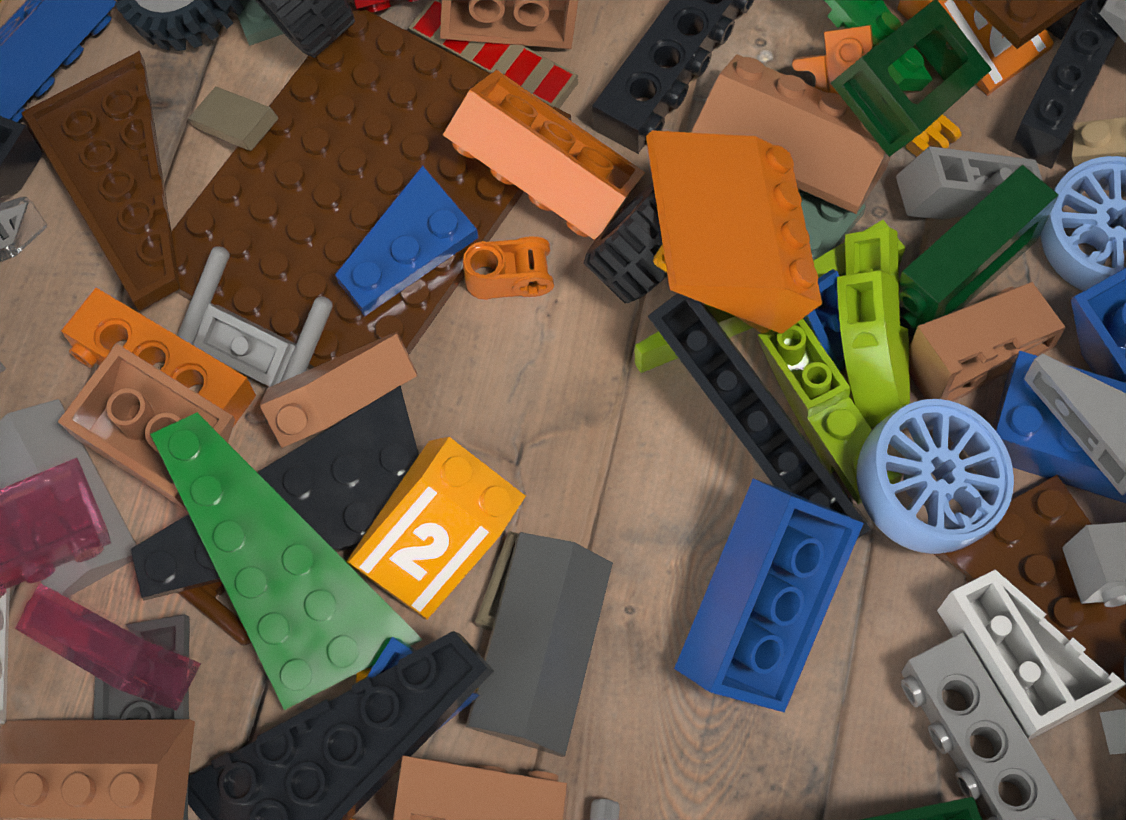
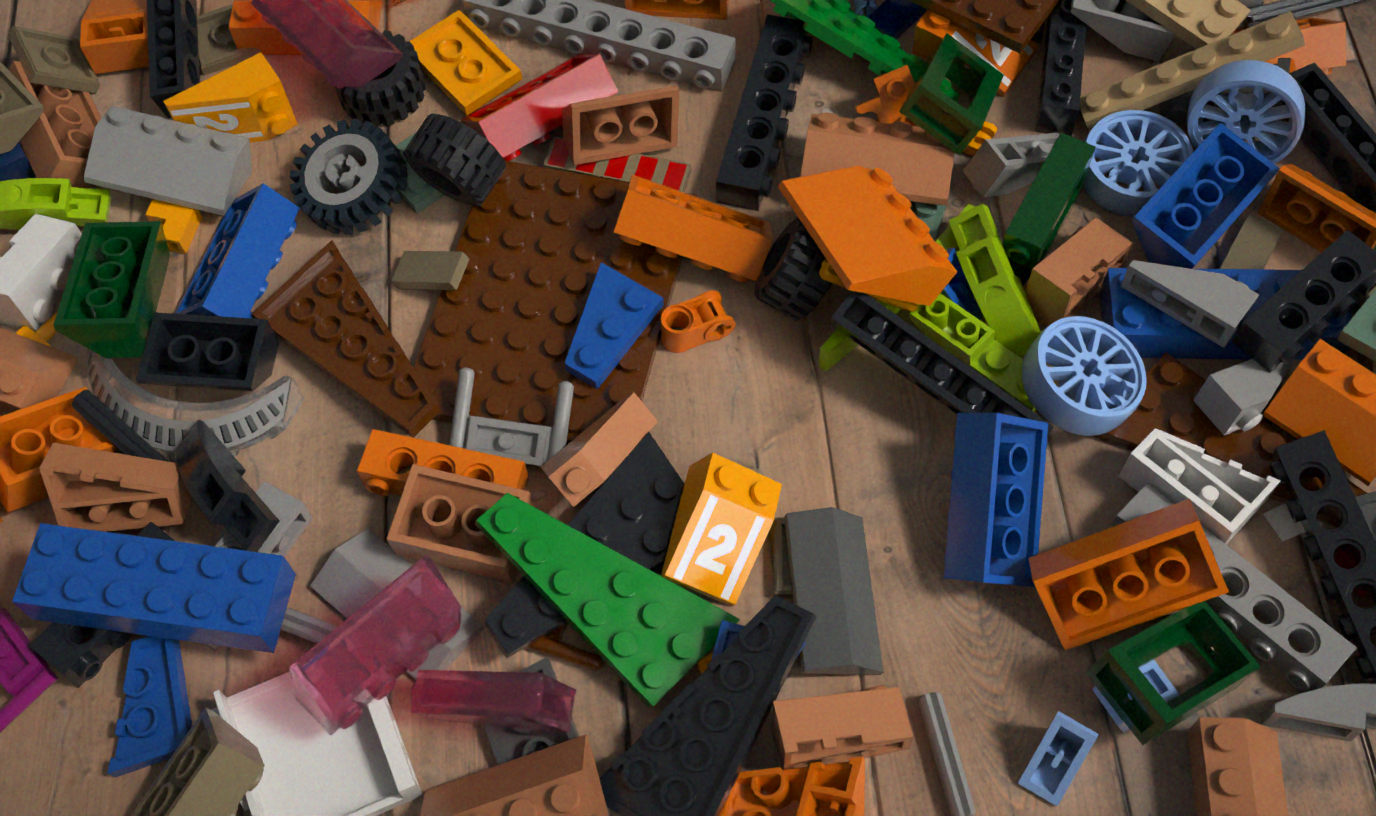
camera: 20 degrees left, 5 degrees down
(890, 738) = (1127, 574): none -> orange slope

